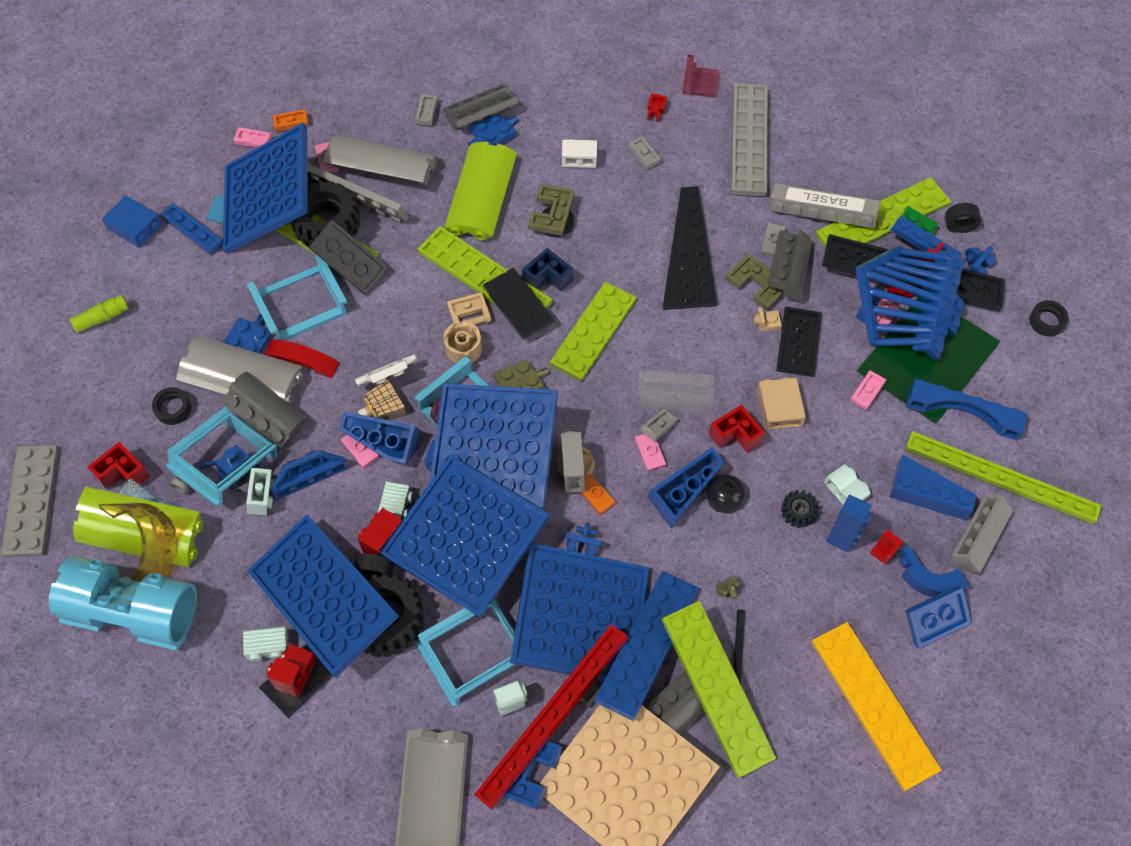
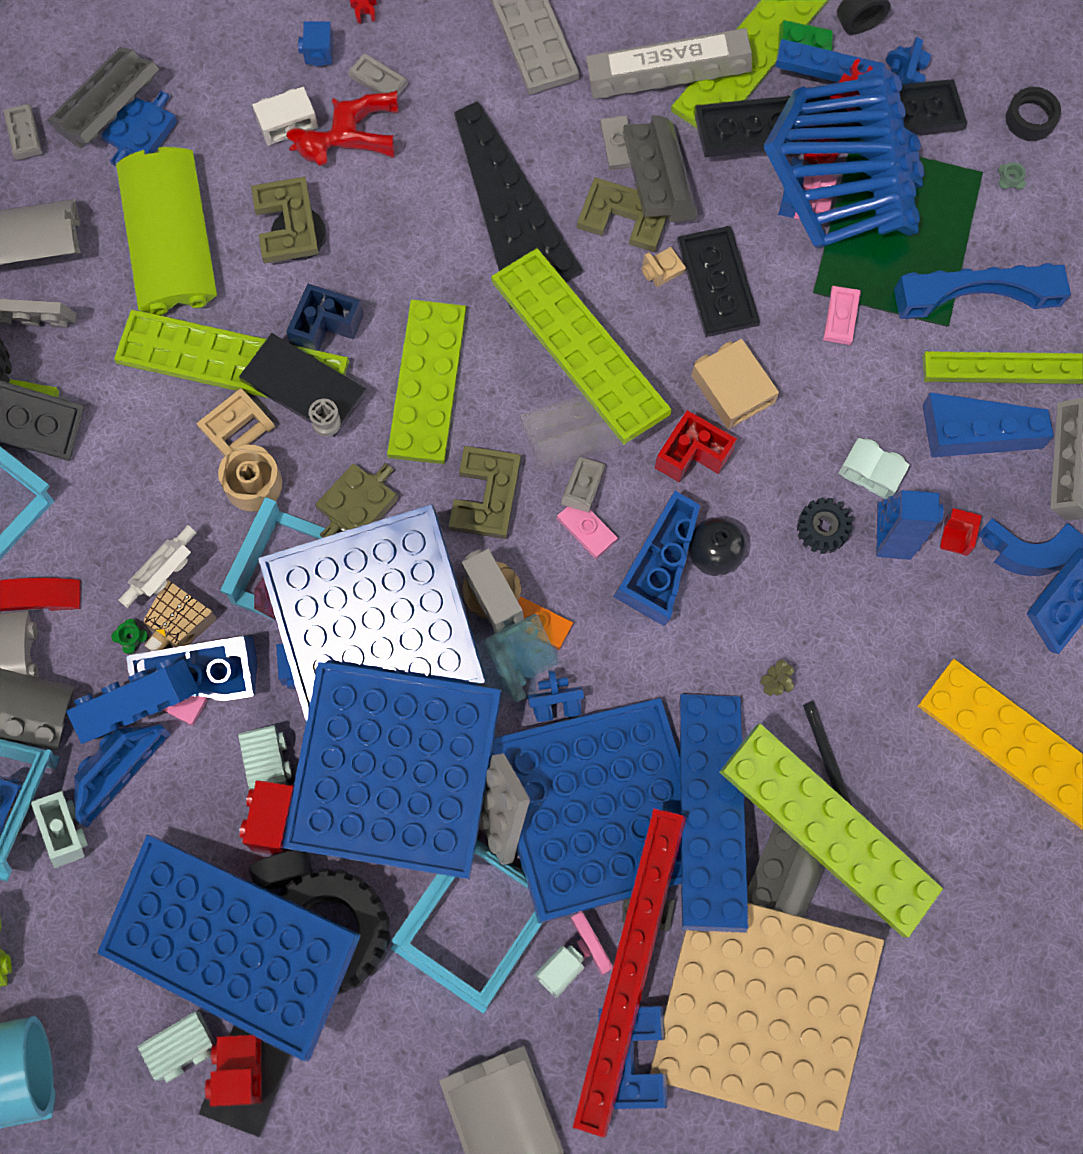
camera: 25 degrees left, 10 degrees up
(335, 436) = (132, 701): none -> blue wedge
(352, 398) = (129, 627): none -> green plate
(518, 586) = (503, 809): none -> light grey plate
(521, 324) = (326, 424): none -> light grey wheel
(536, 691) = (590, 944): none -> bright pink plate
(574, 505) = (520, 654): none -> clear light blue bracket
(609, 175) = (346, 115): none -> red animal
(611, 401) = (501, 474): none -> olive plate
(617, 120) = (316, 43): none -> blue brick
(693, 344) = (581, 346): none -> lime plate
(1018, 345) = (1014, 169): none -> sand green plate

